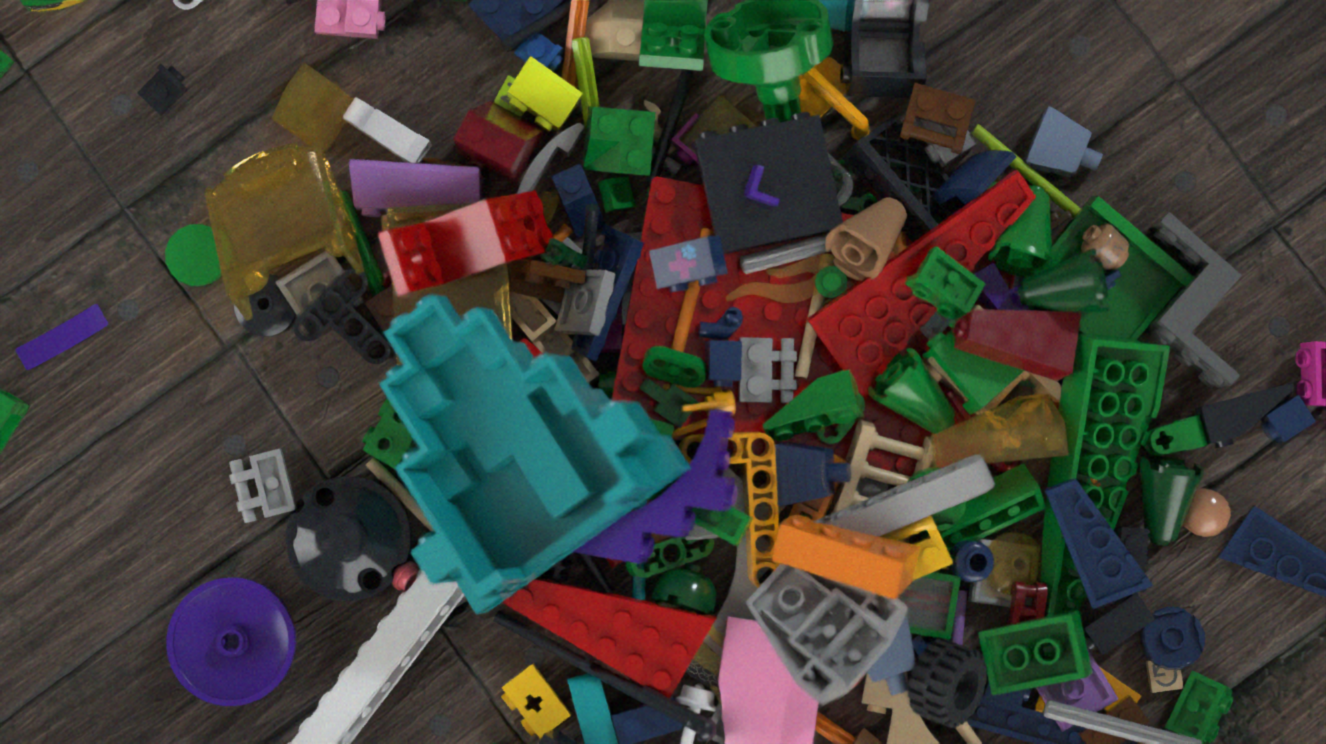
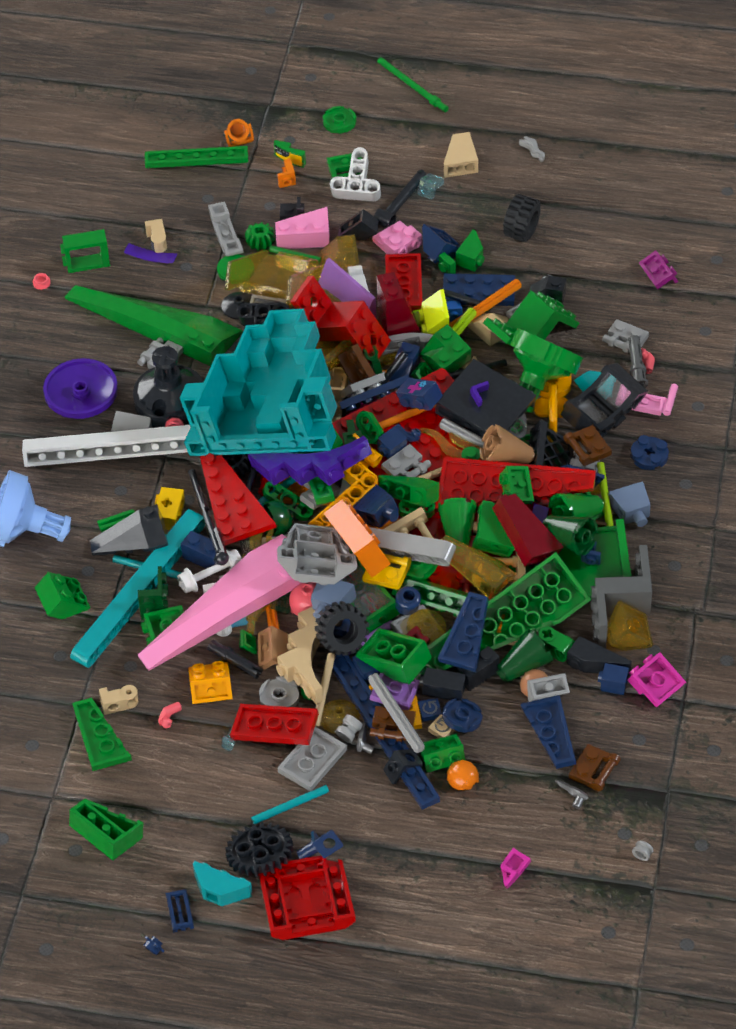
camera: 55 degrees right, 35 degrees down
(50, 307) = (156, 231): none -> tan leg
(89, 31) = (287, 177): none -> orange bracket
(120, 209) = (224, 230): none -> light grey slope
(165, 168) = (259, 236): none -> green gear
(222, 110) = (304, 230): none -> bright pink wedge
(244, 413) = (197, 333): none -> green wedge
(273, 141) = (274, 249): none -> green bar
(283, 36) = (361, 225): none -> black slope
(349, 626) = (127, 421): none -> light grey slope
(432, 66) = (408, 272): none -> red plate
(990, 59) = (649, 444): none -> dark blue plate
(1110, 243) = (606, 543): medium nougat head -> none
(1126, 664) = (429, 709): none -> dark blue tile
(1237, 332) = (628, 628): none -> clear yellow slope
(1237, 512) = (547, 687): none -> light grey slope
(1252, 714) = (462, 775): none -> orange hair

